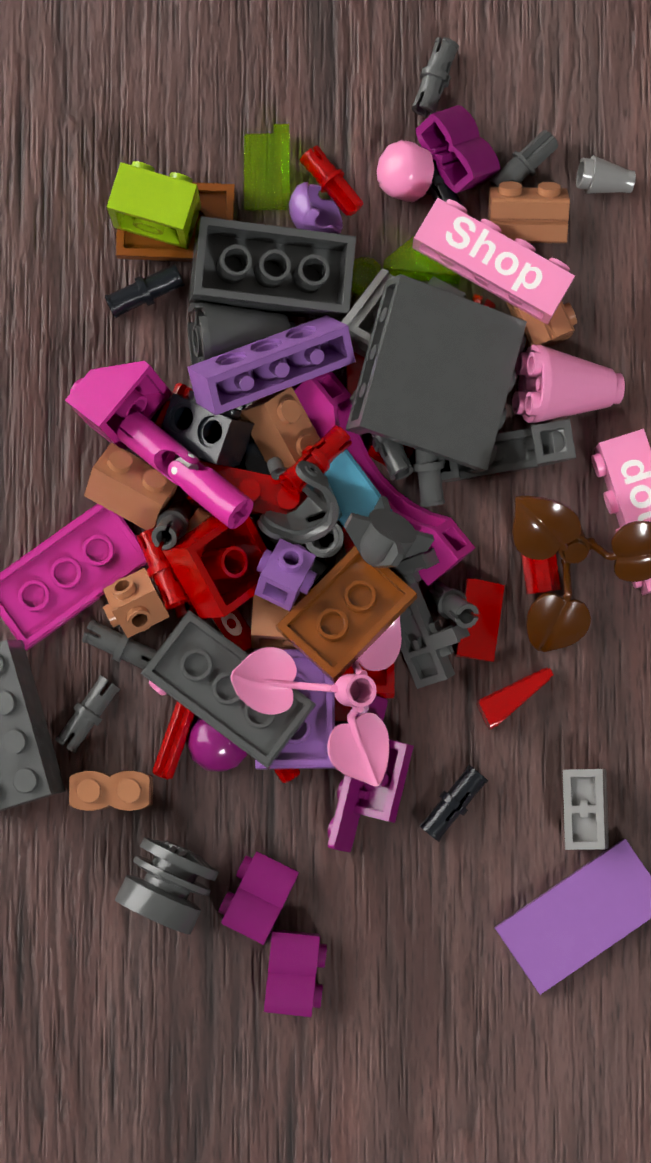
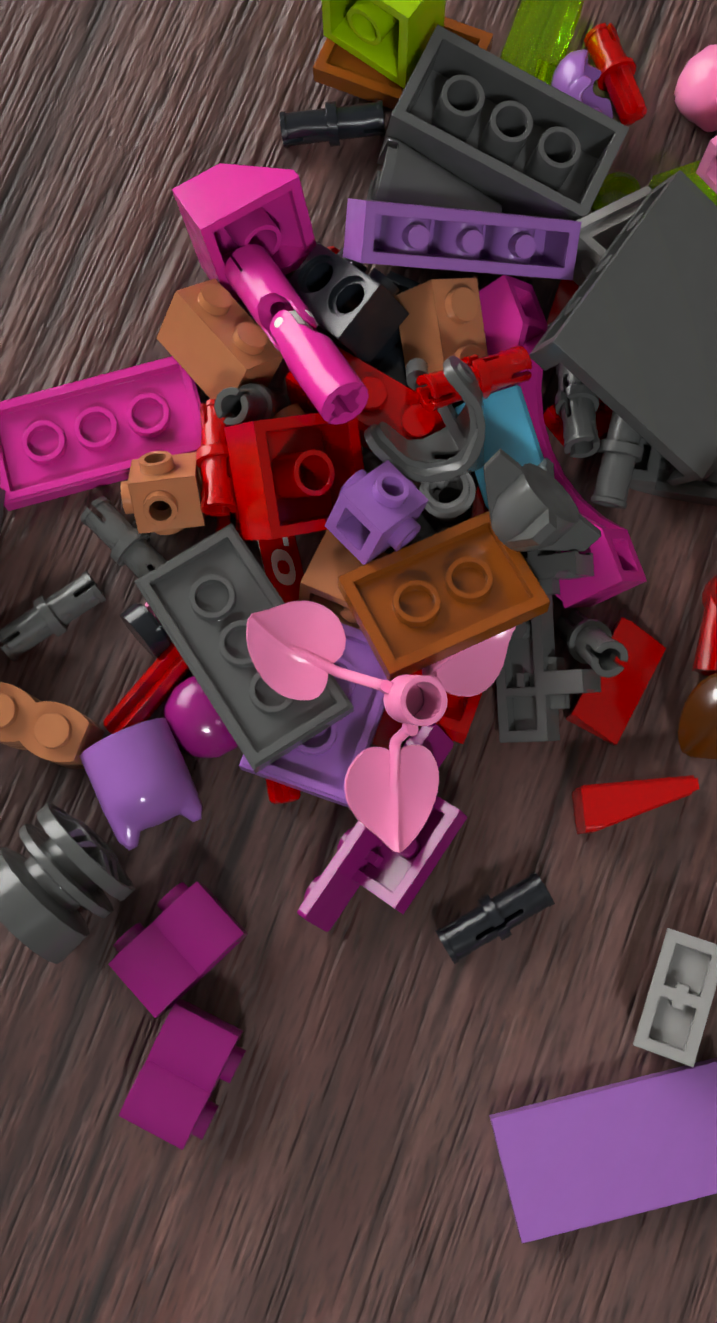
camera: 25 degrees right, 5 degrees down
(156, 700) = (146, 629): none -> black tile
(196, 801) = (141, 779): none -> medium lavender piece

